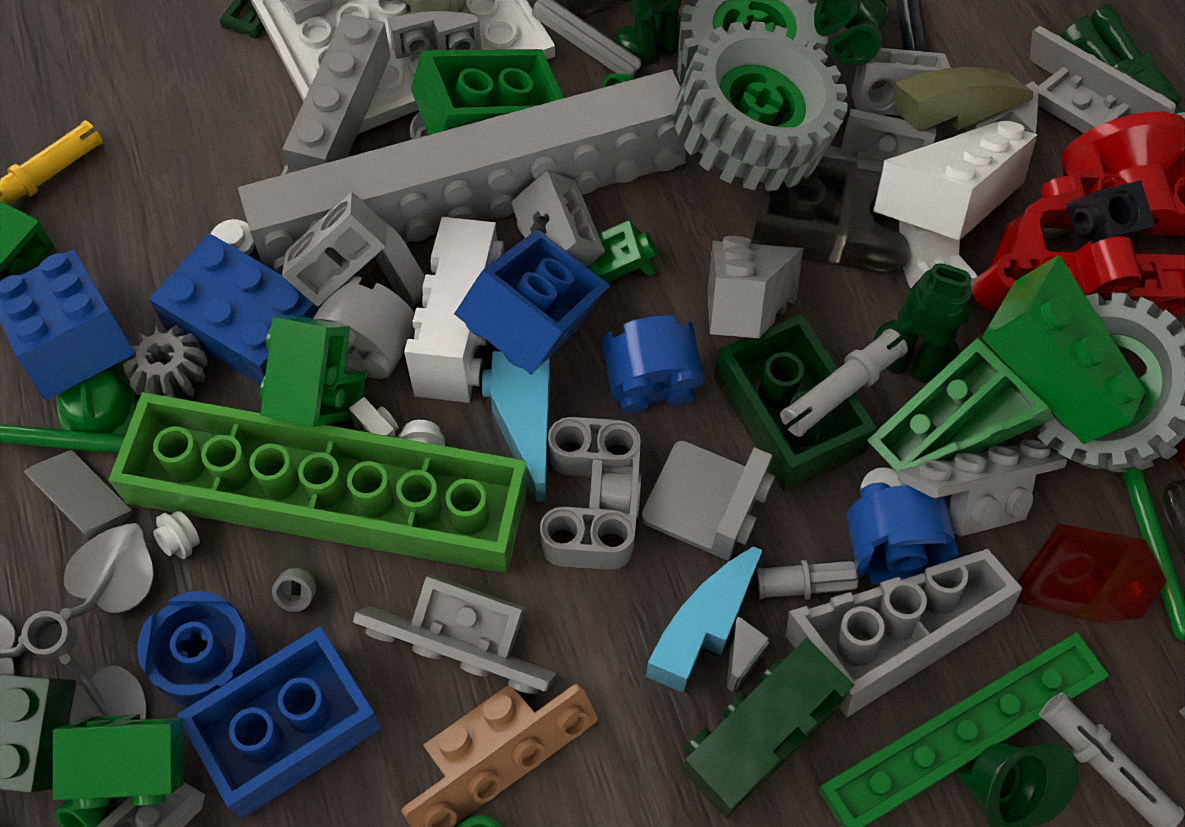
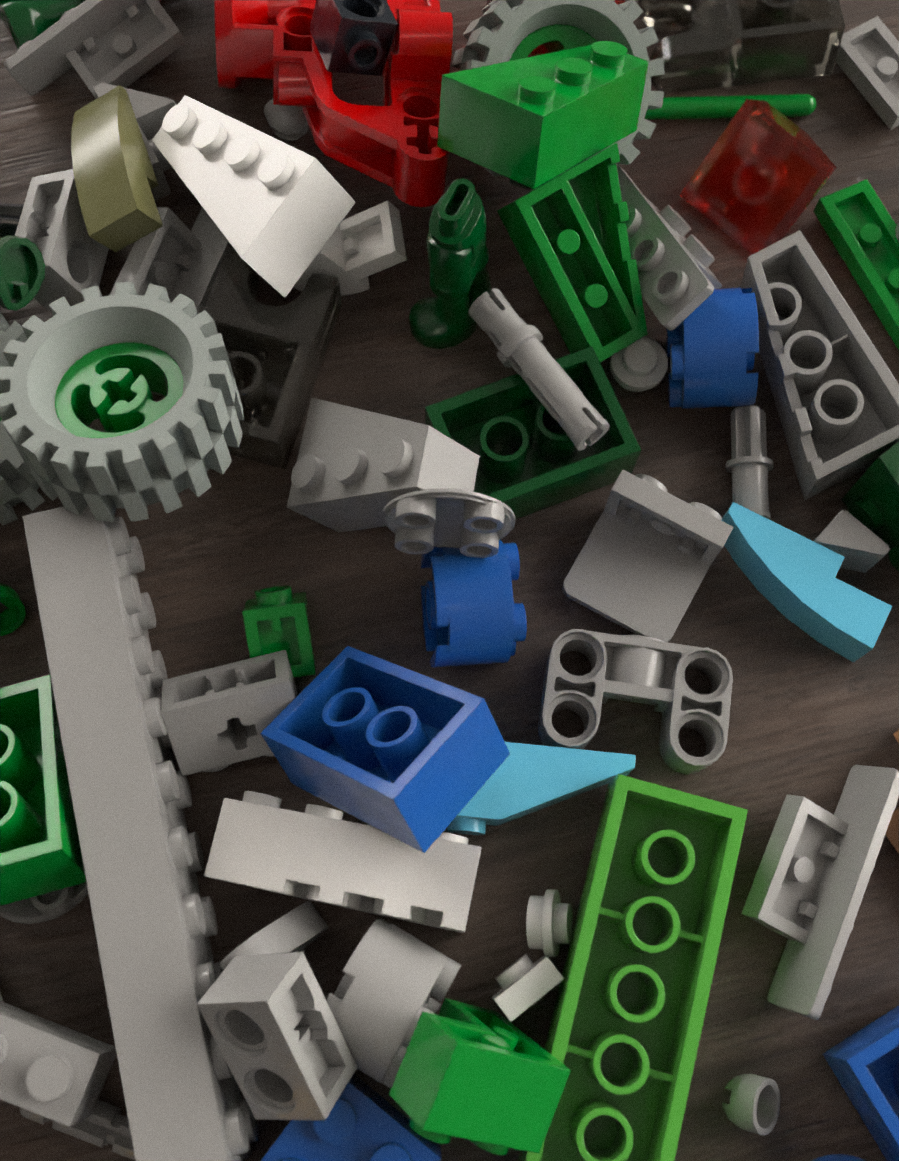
camera: 85 degrees left, 10 degrees up
(699, 303) = (448, 520): none -> light grey dish

